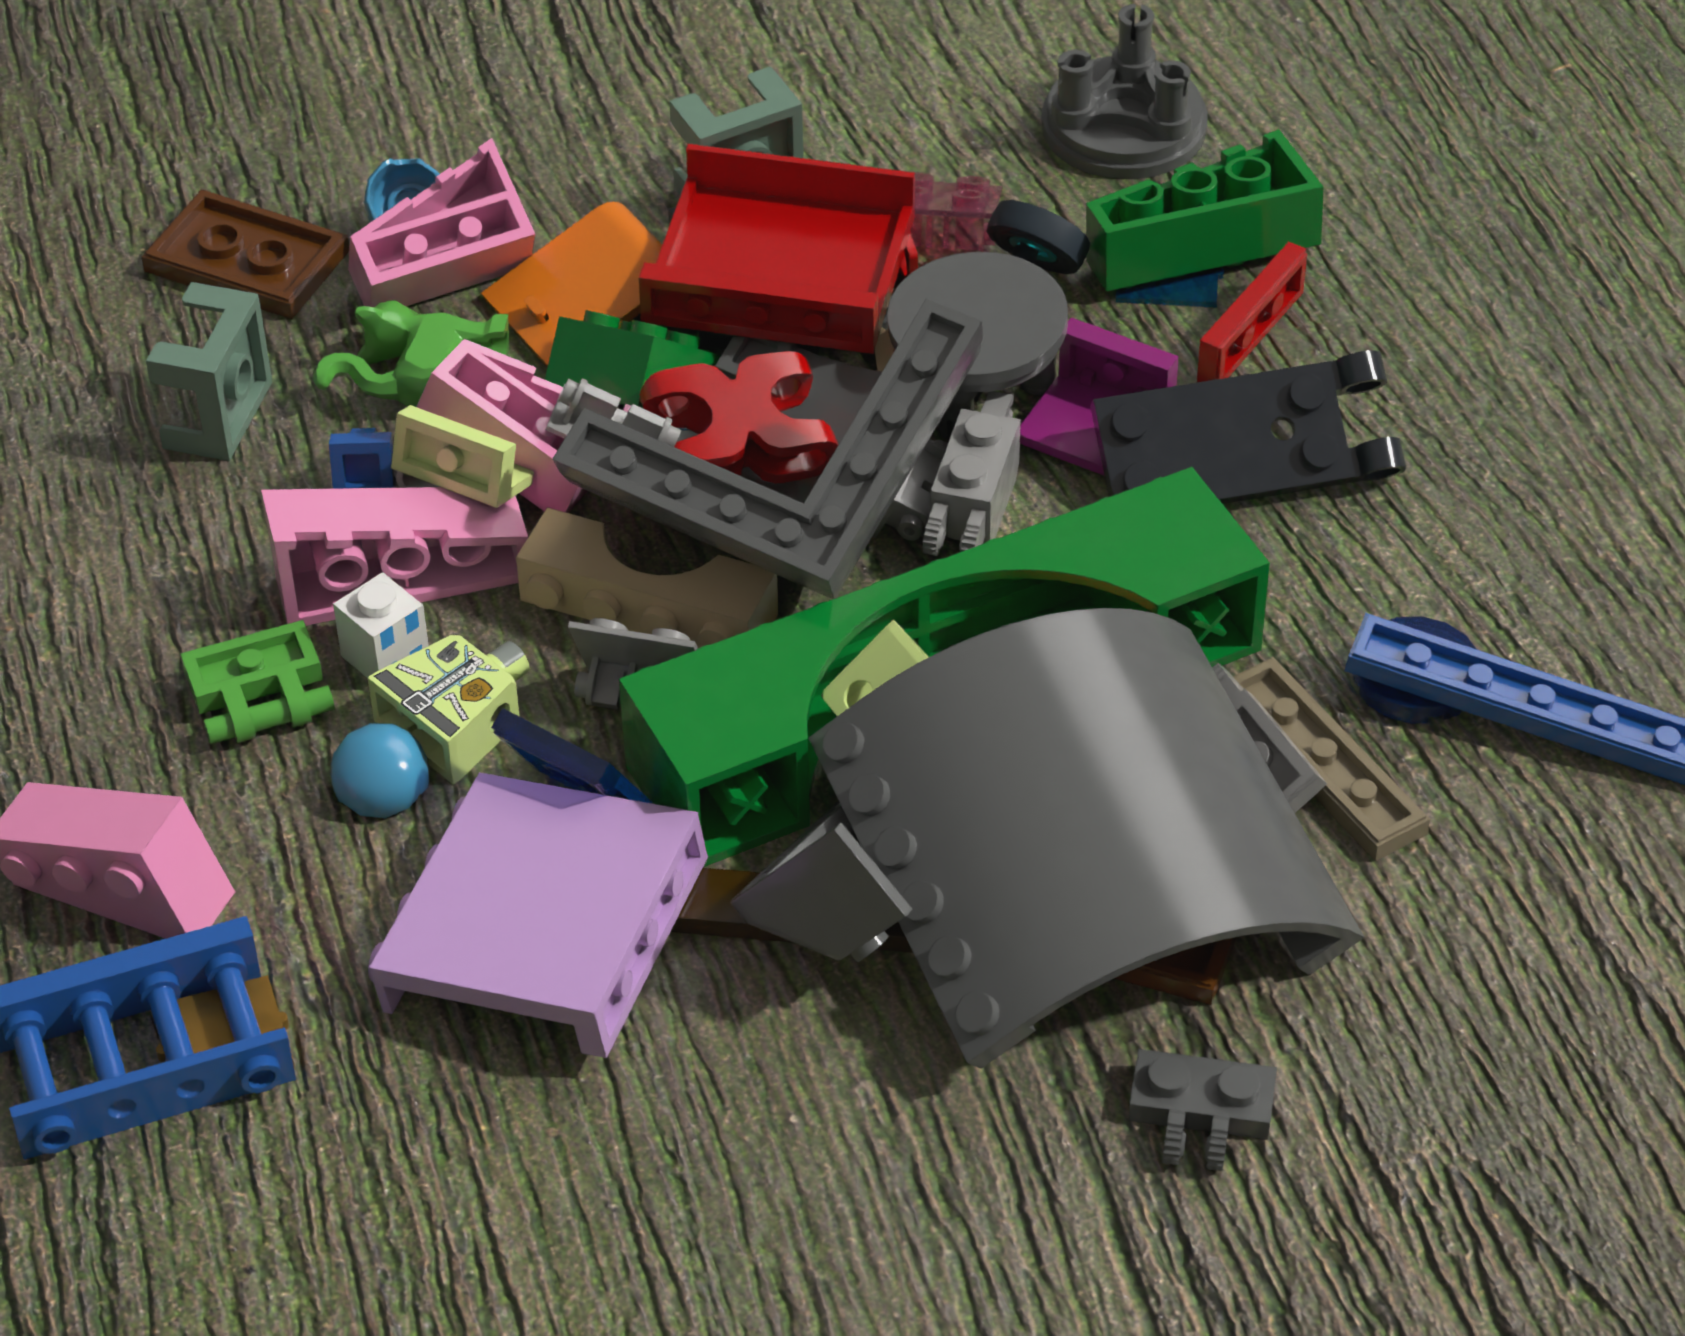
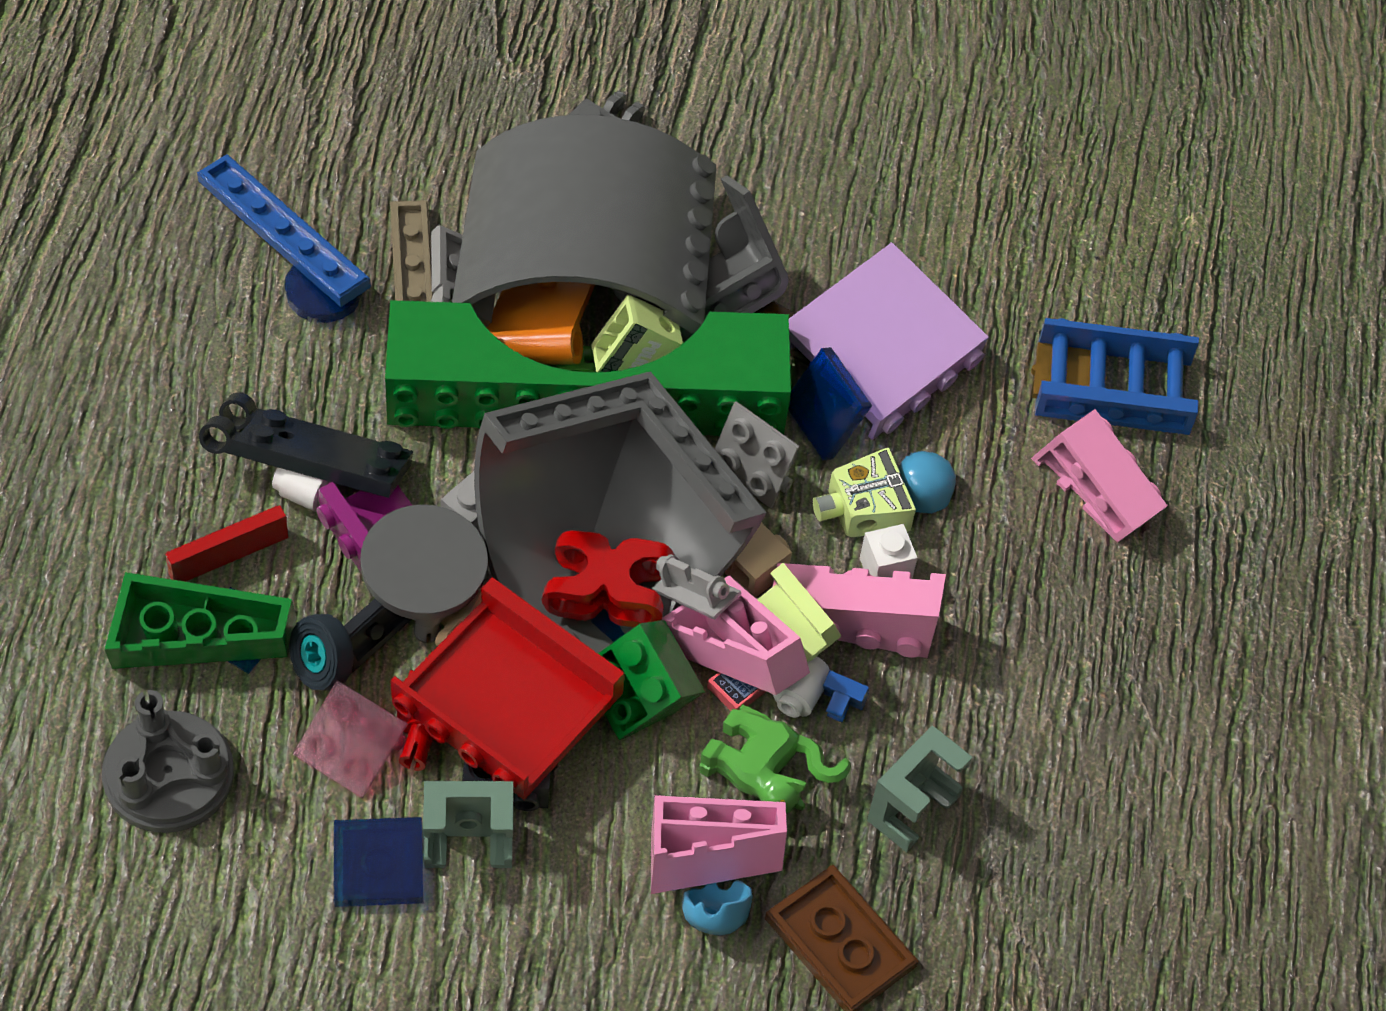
camera: 160 degrees left, 10 degrees up
(252, 668) = (972, 577): bright green plate -> none
(581, 269) = (619, 772): orange door -> none
(844, 123) = (378, 862): none -> clear blue tile

